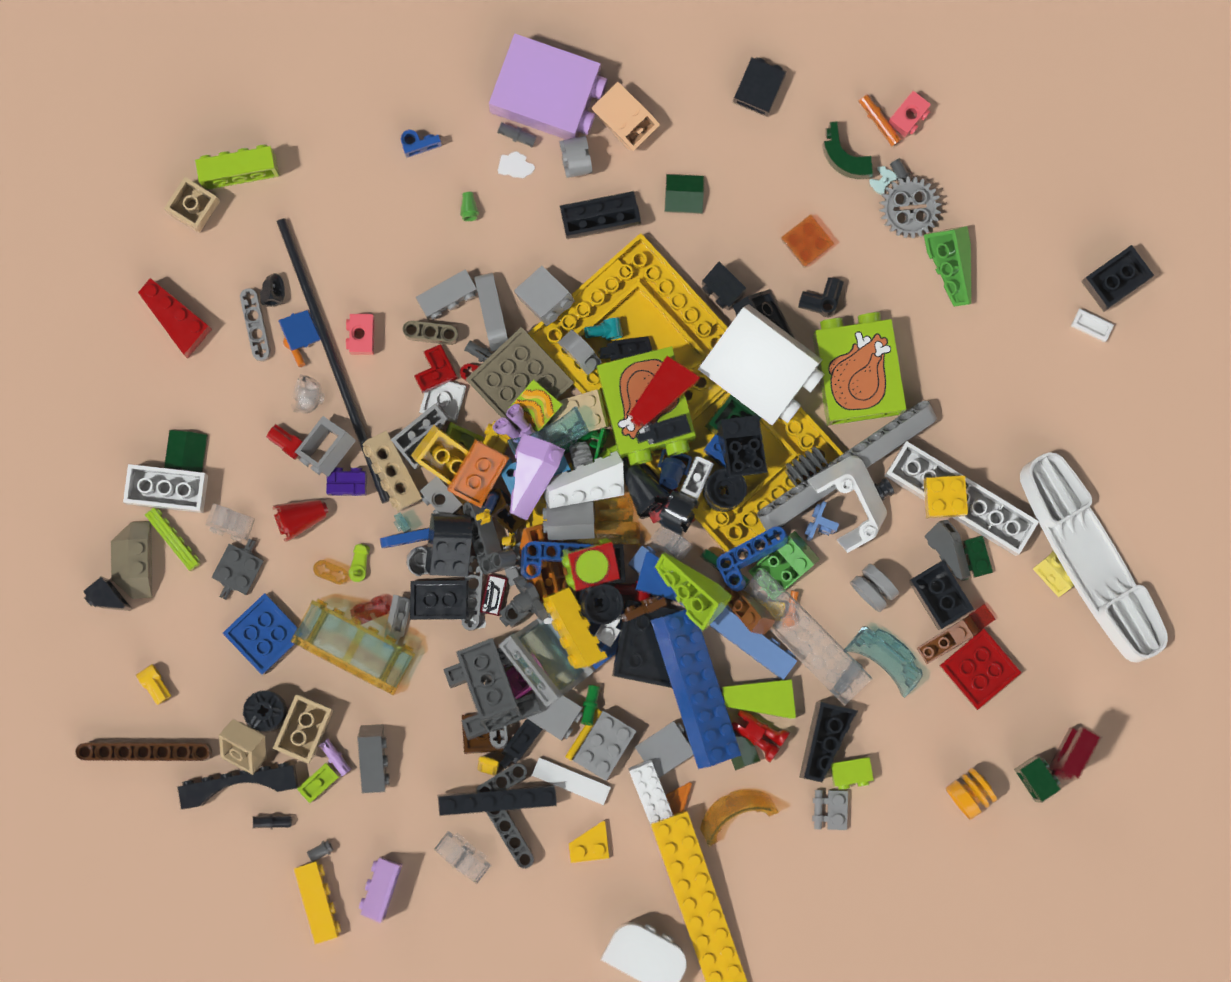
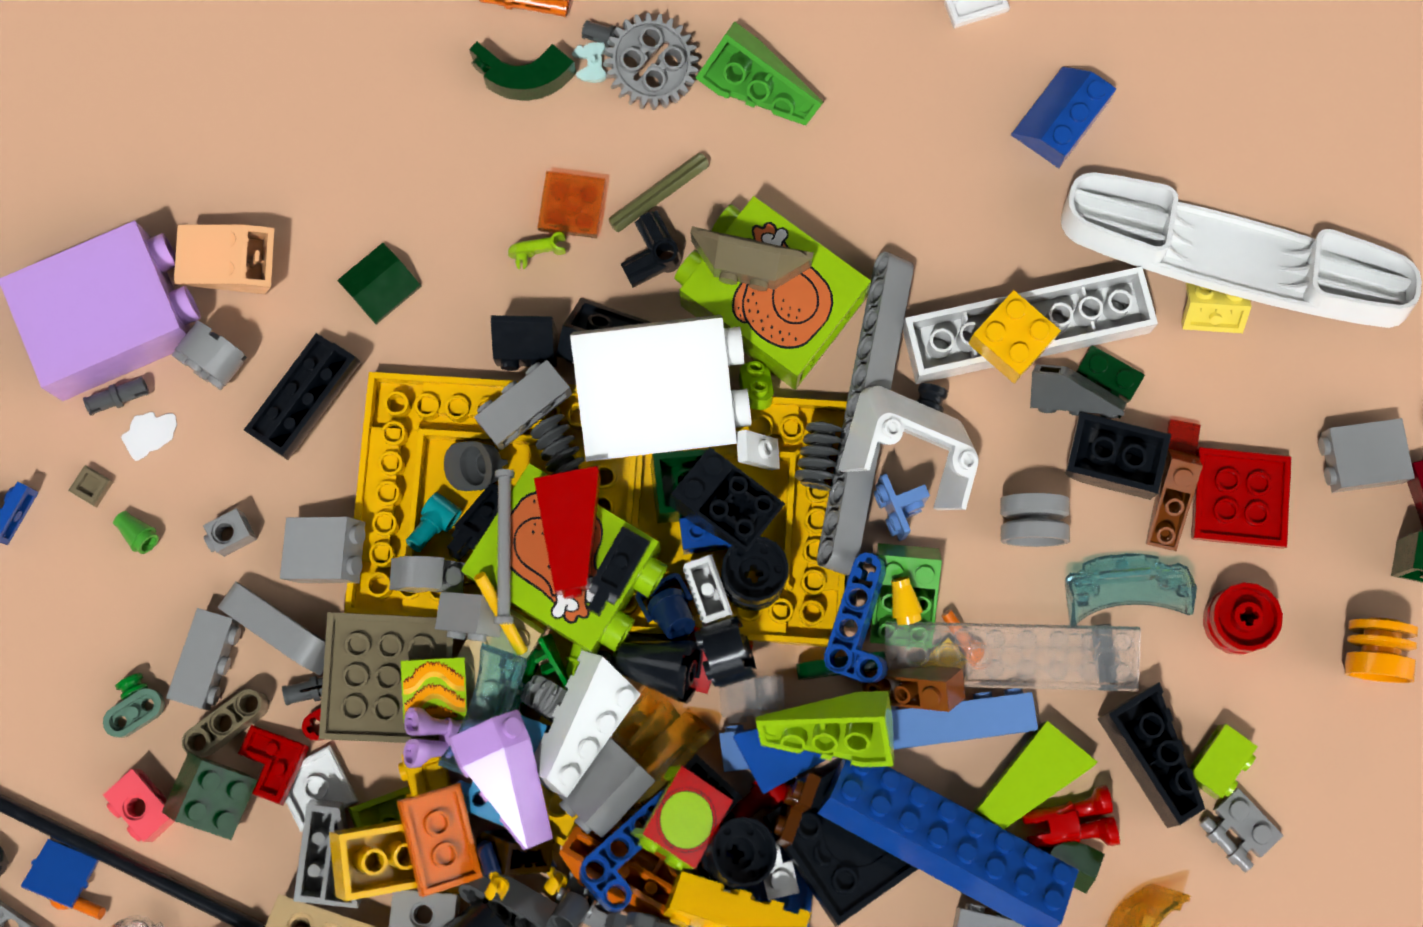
camera: 40 degrees left, 5 degrees down
(395, 288) = (135, 713): none -> sand green plate
(395, 359) = (209, 796): none -> dark green brick
(404, 276) = (130, 685): none -> green bush
(467, 165) = (90, 486): none -> dark tan tile
(516, 253) = (241, 537): none -> light grey brick
(582, 388) = (464, 615): none -> light grey brick
(596, 401) = (491, 597): none -> yellow bar
(625, 373) = (504, 546): none -> light grey bar
(646, 321) = (472, 465): none -> dark grey piece
(691, 349) = (555, 445): none -> dark grey piece
(695, 314) = (522, 404): none -> light grey brick
(759, 86) = (351, 86): black brick -> none
(765, 242) = (527, 249): none -> lime piece
(779, 567) = (905, 602): none -> yellow cone
(780, 437) = (757, 450): none -> white plate
(810, 406) = (757, 380): none -> lime plate
(853, 273) = (658, 192): none -> olive axle
(858, 347) = (748, 260): none -> dark tan wedge
(935, 723) = (1260, 614): none -> red wheel
(1056, 705) = (1366, 455): none -> light grey brick
(1079, 416) = (1064, 114): none -> blue slope

